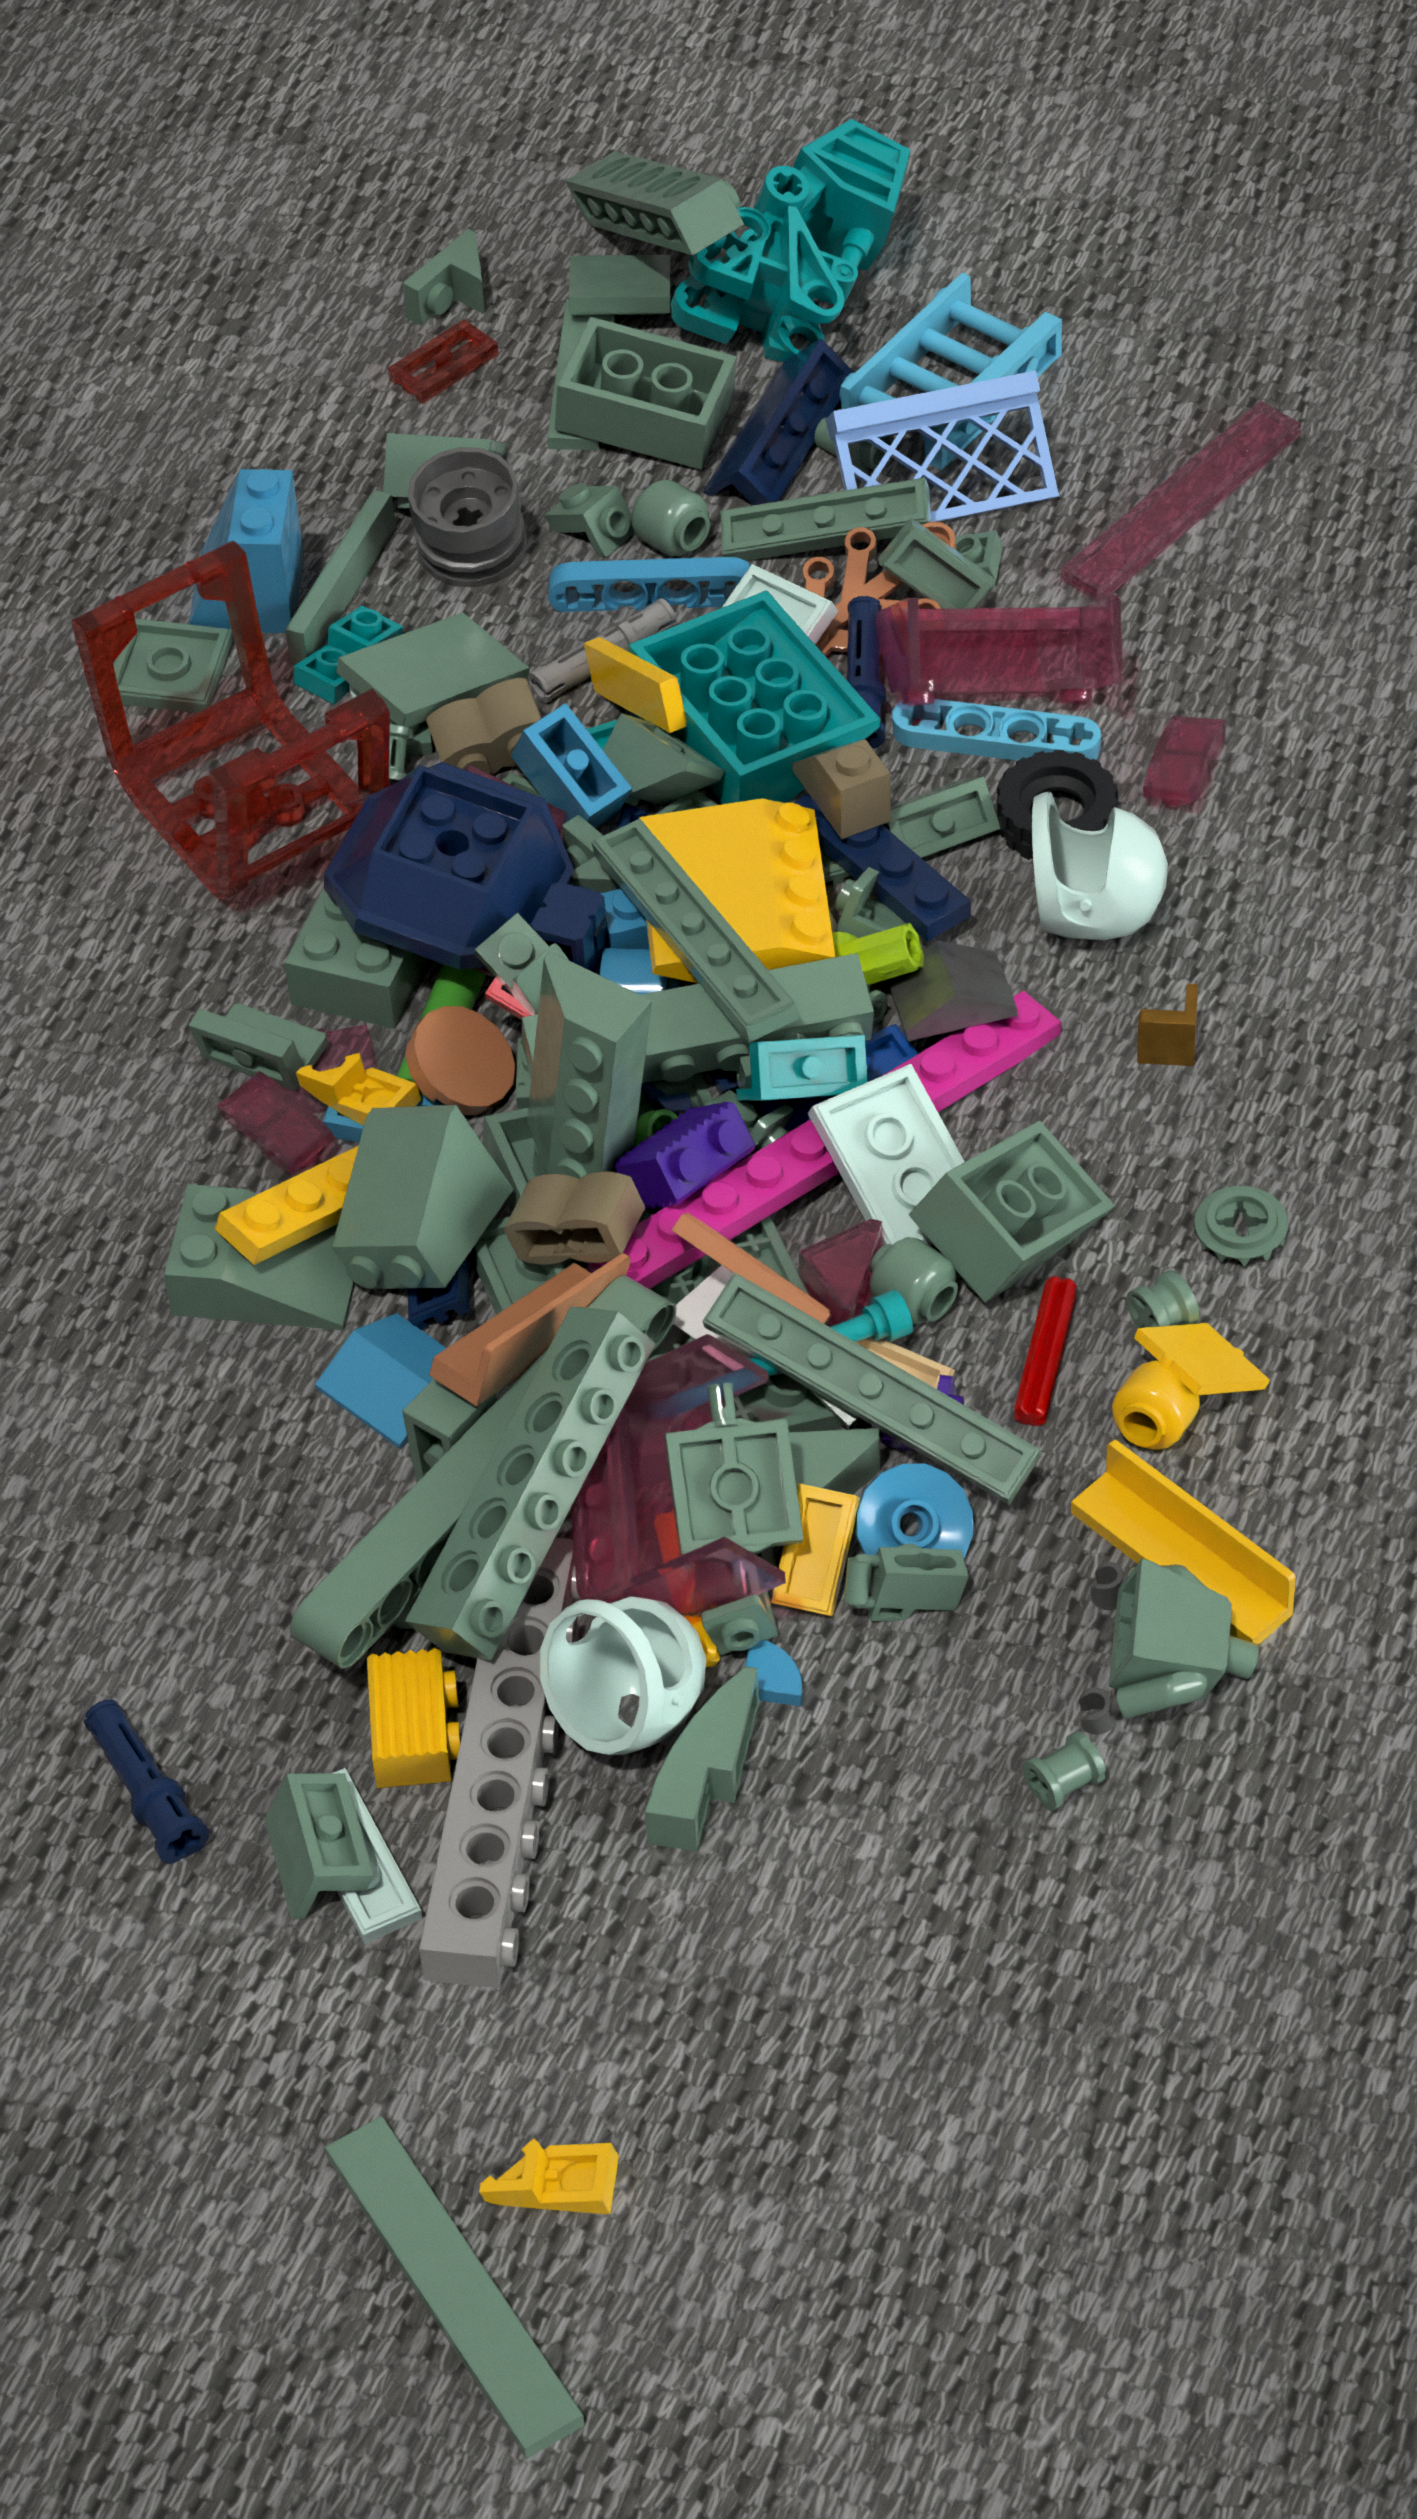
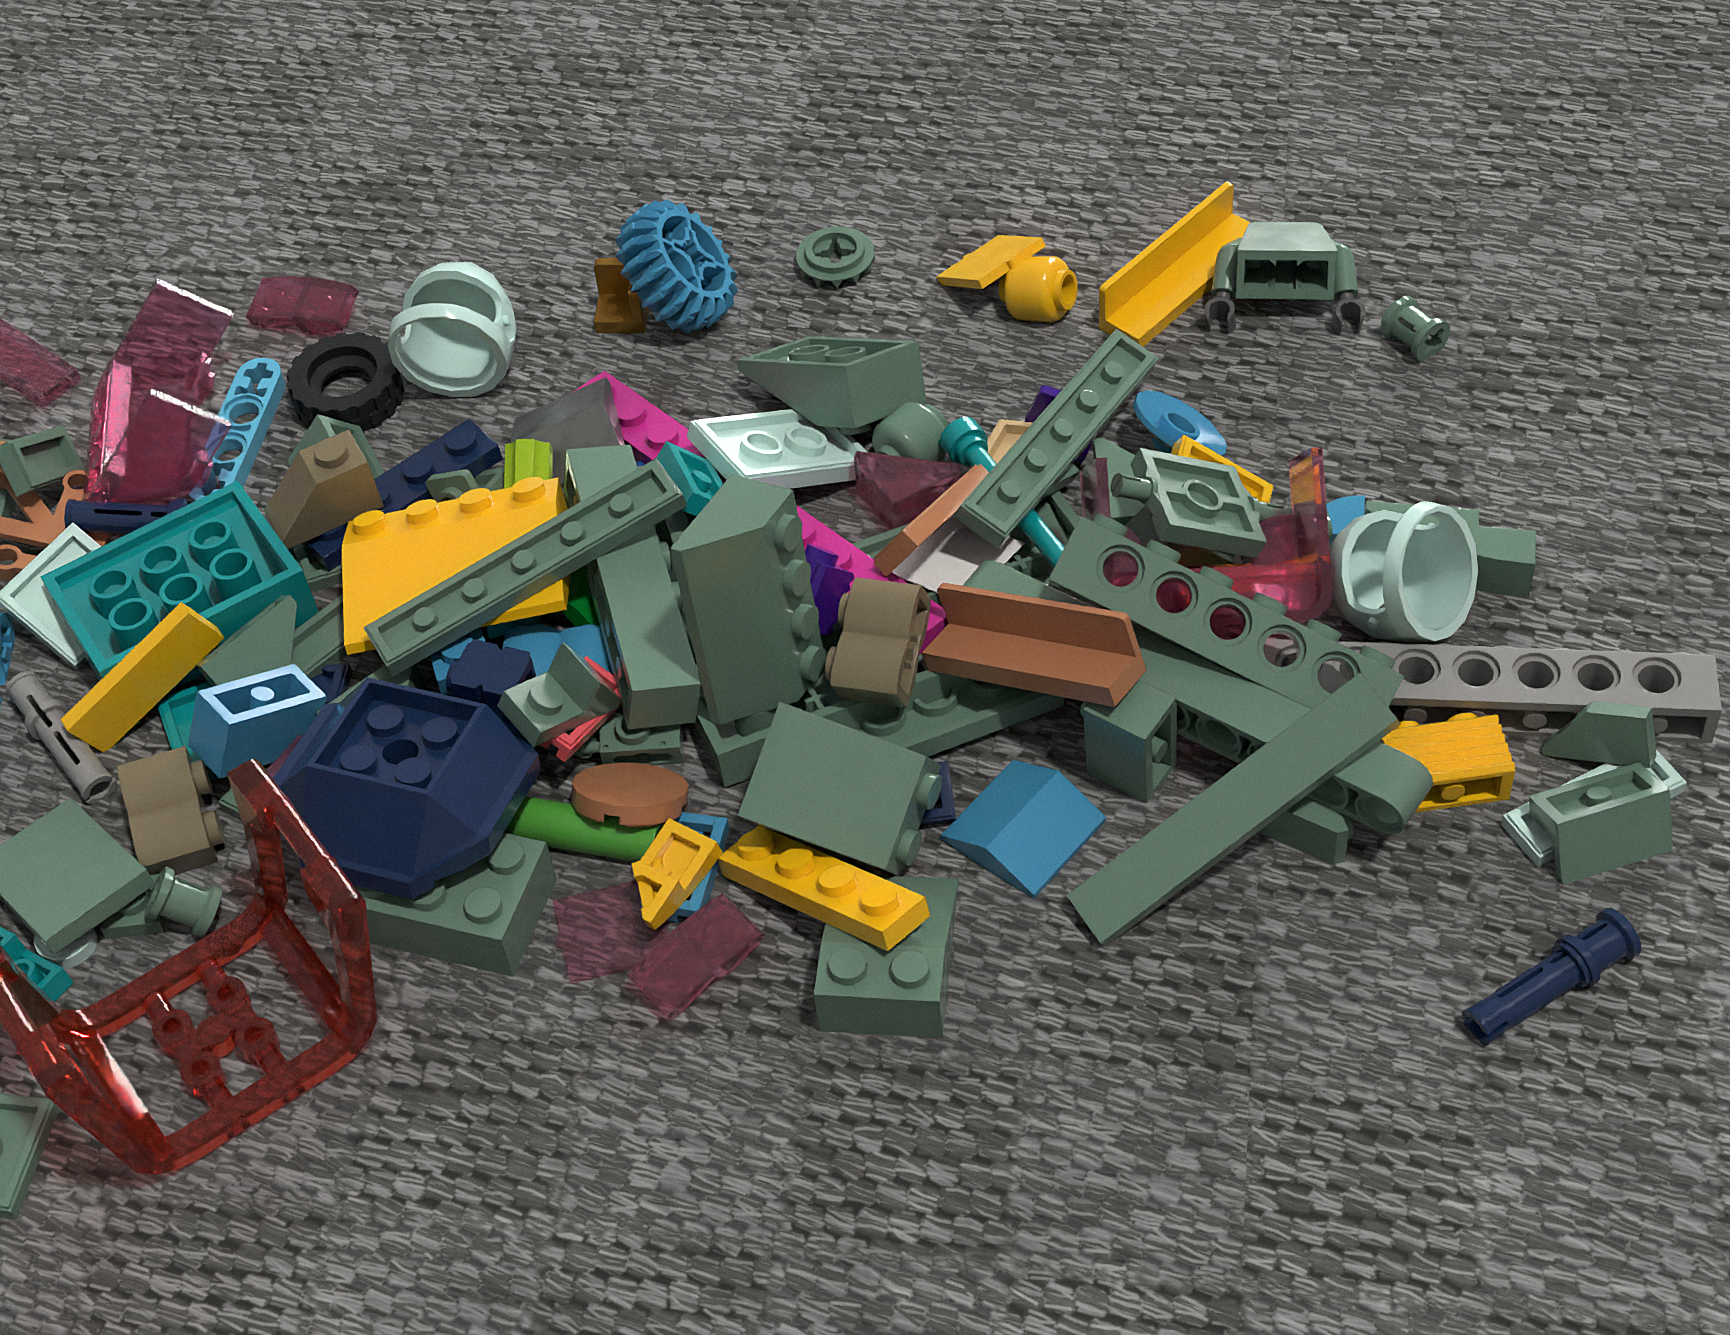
camera: 90 degrees left, 0 degrees up
(257, 1042) = (582, 982): sand green panel -> none
(331, 1497) = (1233, 809): none -> sand green tile
(408, 1858) = (1606, 735): none -> sand green tile
(905, 1581) = (1240, 424): sand green piece -> none
(1045, 1351) = (984, 368): red axle -> none
(1157, 1065) = (676, 266): none -> dark azure gear
(1164, 1303) = (931, 290): sand green wheel -> none

